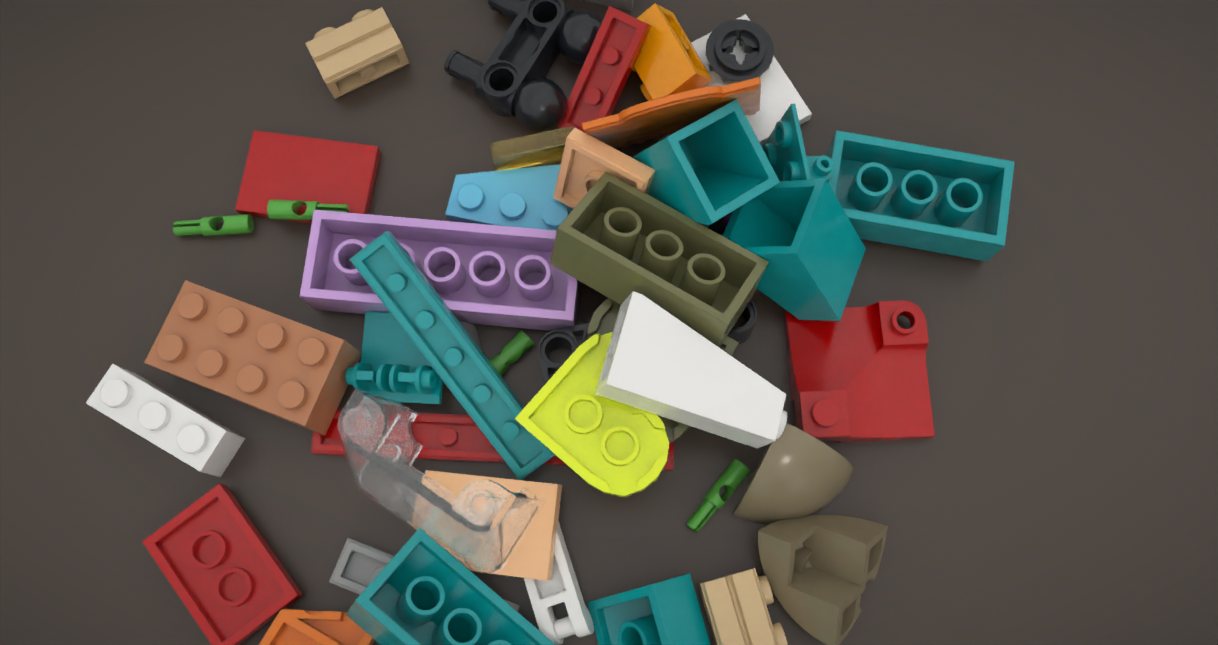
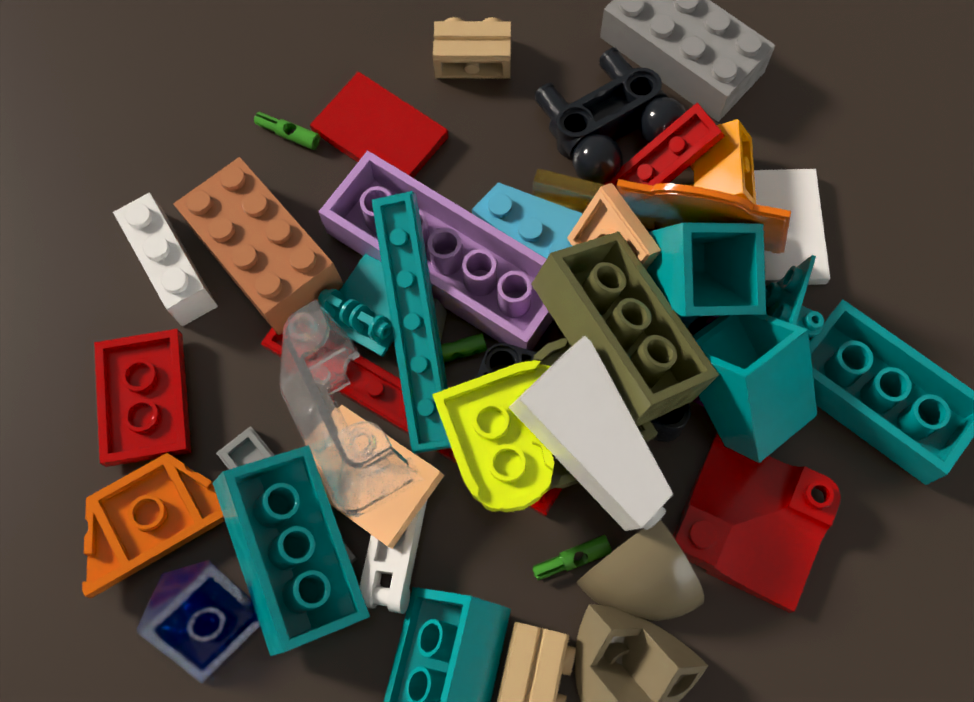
camera: 30 degrees right, 5 degrees down
(288, 209) = (350, 144): bright green pin -> none
(753, 41) = (810, 196): black gear -> none

